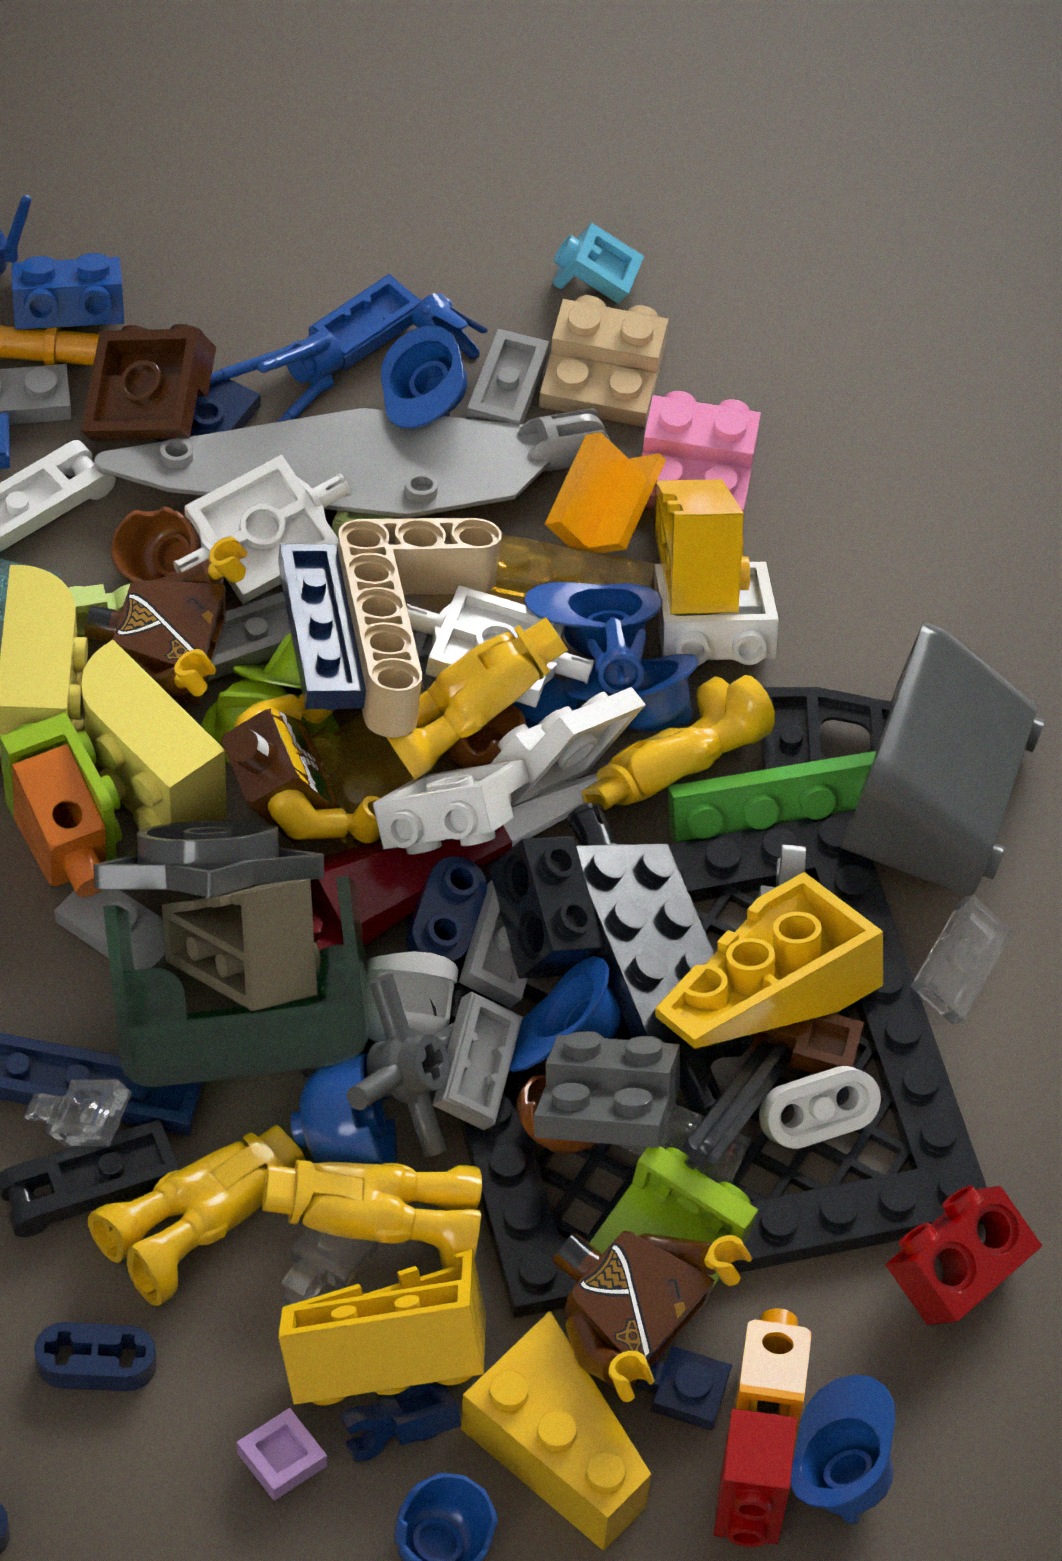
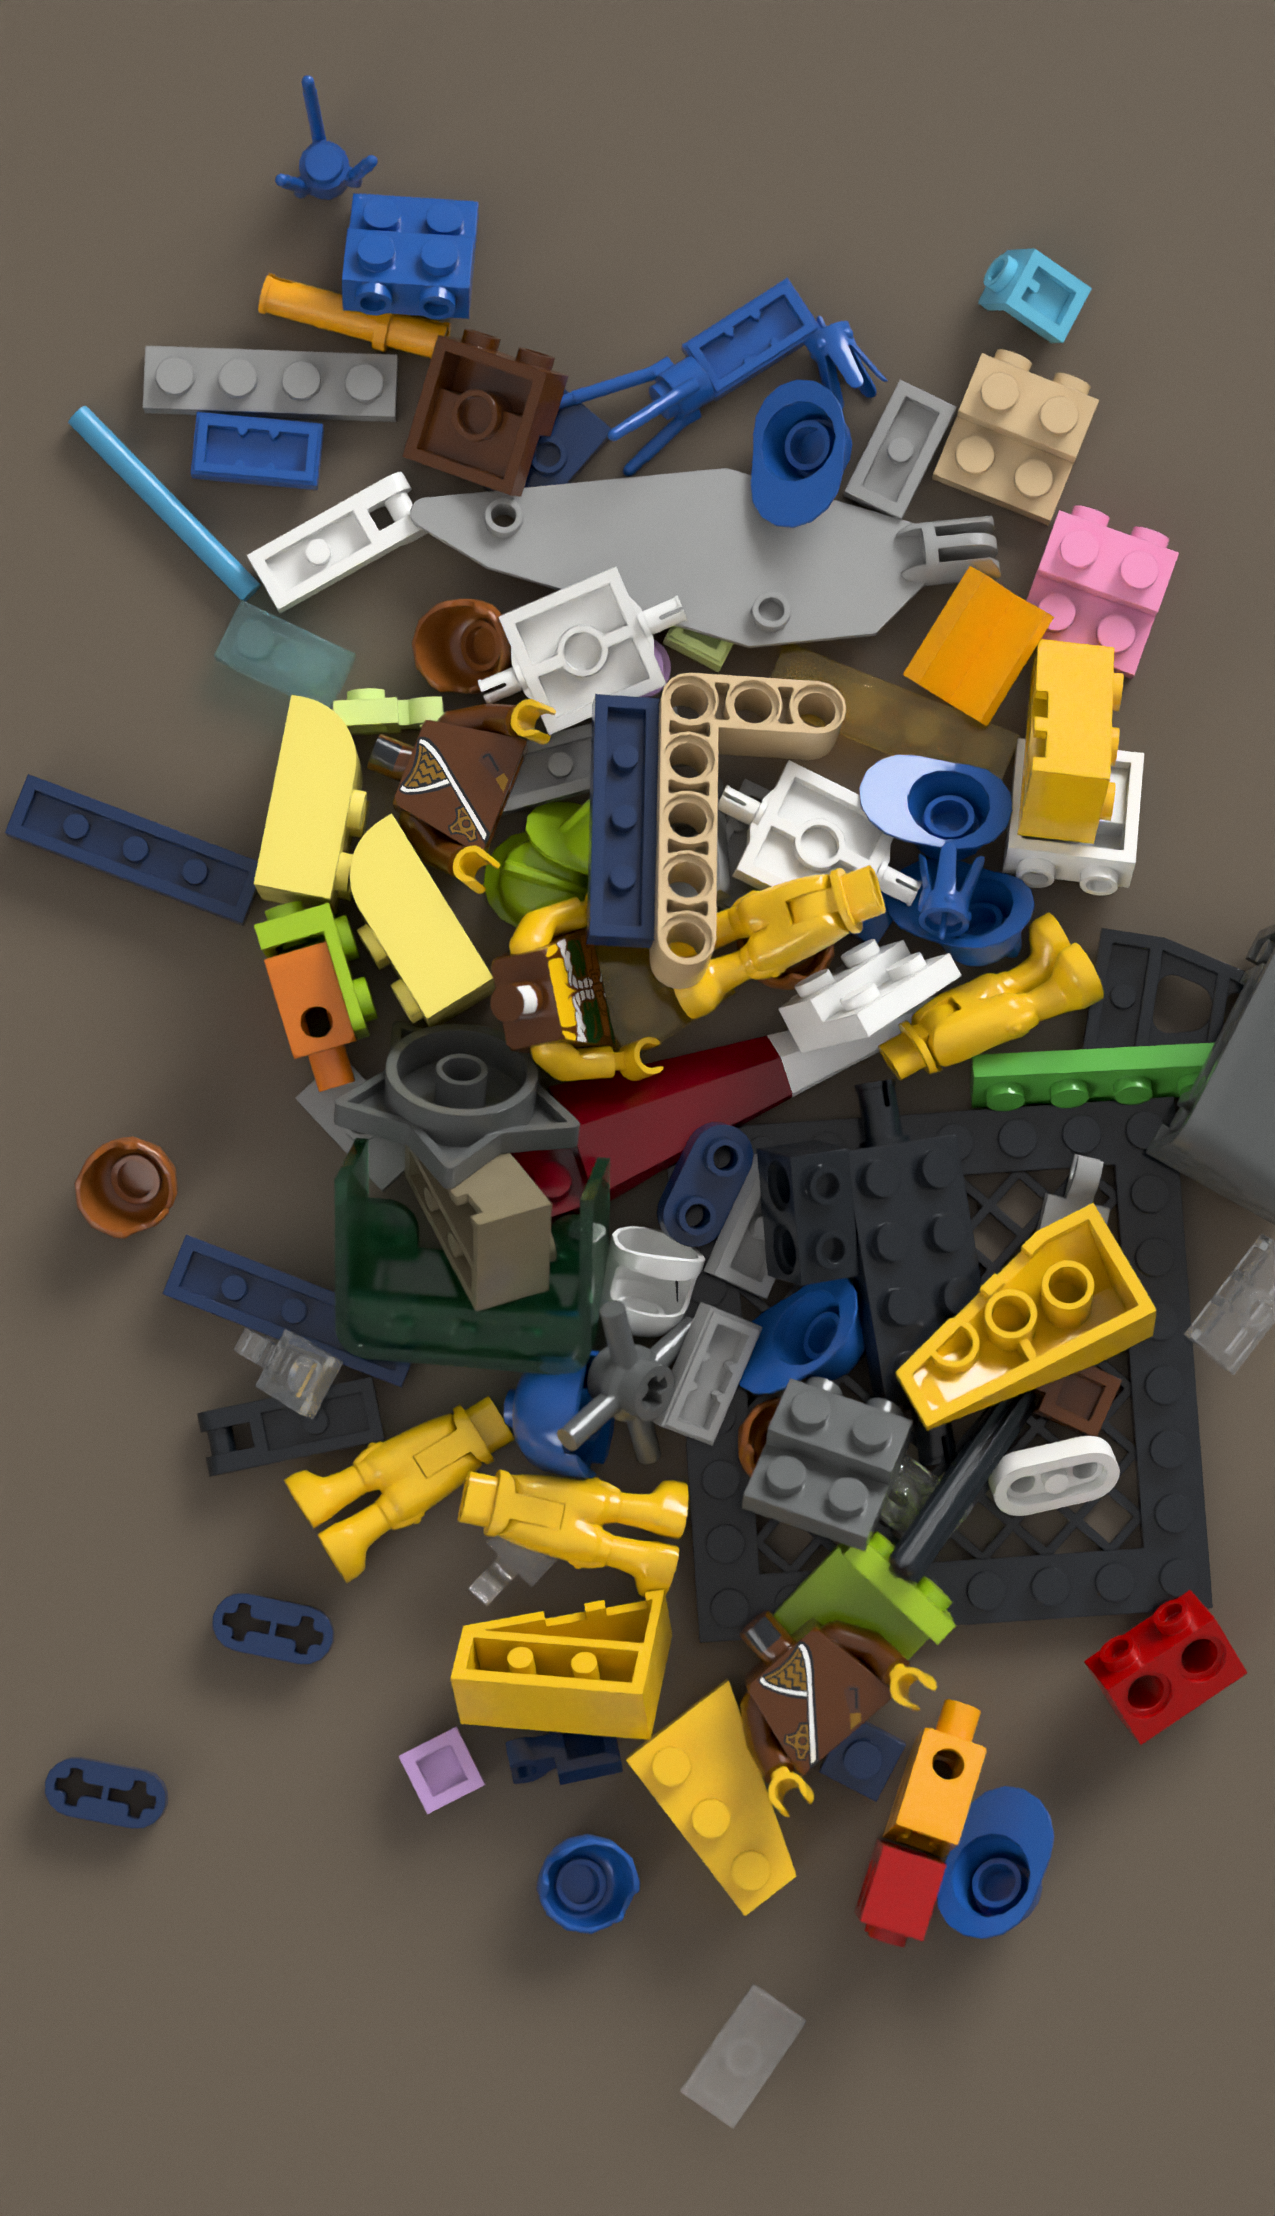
camera: 10 degrees right, 30 degrees up
(449, 805) = (728, 1070): white plate -> none

